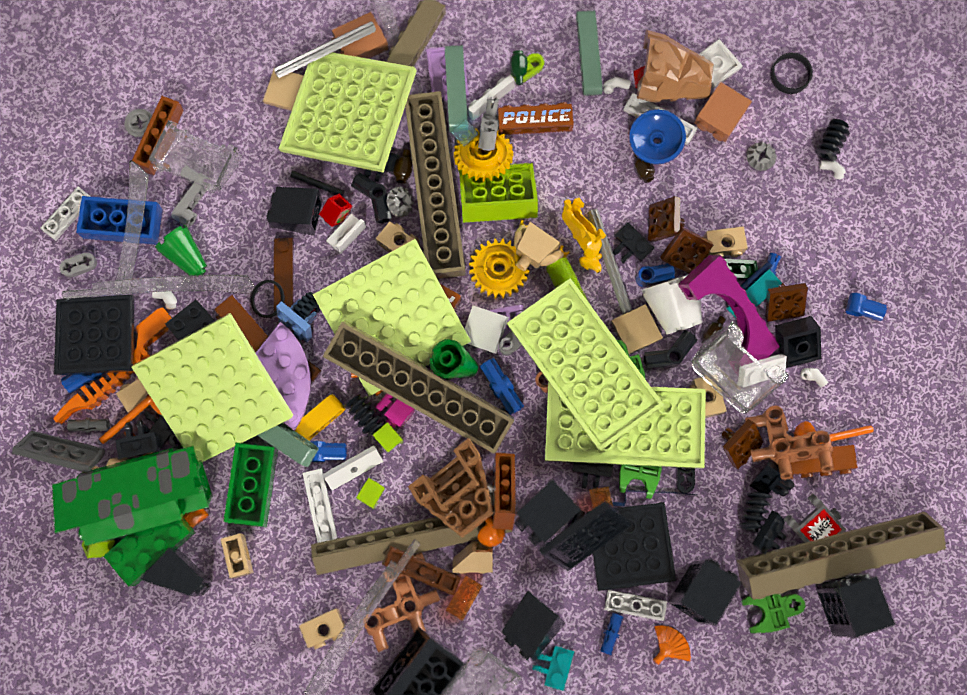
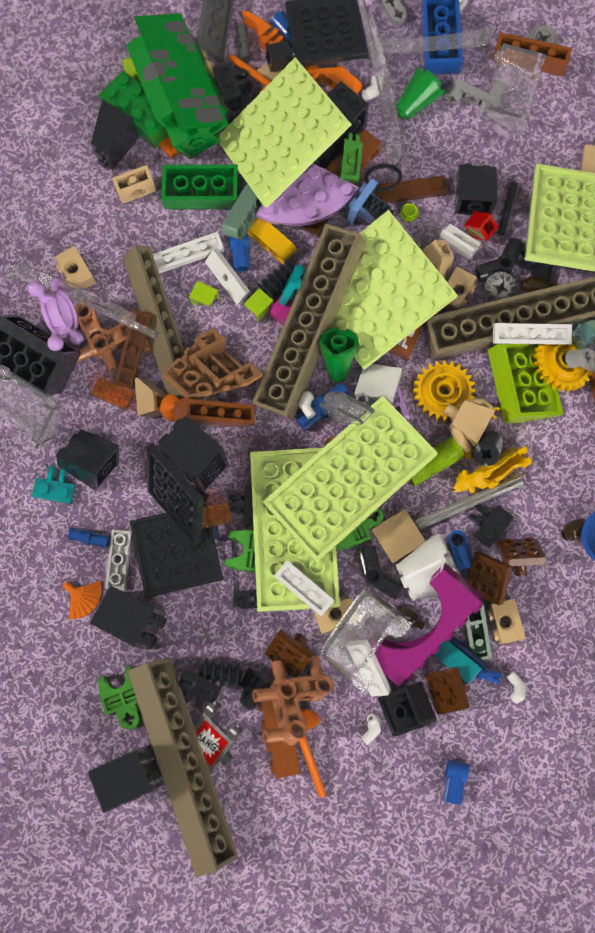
camera: 90 degrees right, 0 degrees up
(118, 386) = (279, 55): none -> black brick
(253, 326) = (351, 158): none -> bright green hinge
(308, 278) = (409, 212): none -> lime plate
(327, 258) = (432, 228): none -> clear arm
(363, 253) = (440, 256): none -> tan slope
(378, 398) = (294, 282): none -> teal hinge
(379, 643) = (49, 304): none -> lavender piece
(458, 177) = (532, 333): none -> white plate
(500, 401) = (305, 404): none -> white arm
(515, 359) = (345, 409): none -> clear slope
(566, 233) = (488, 448): none -> black piece
(687, 419) = (304, 588): none -> white plate
(783, 239) = (519, 687): none -> white arm

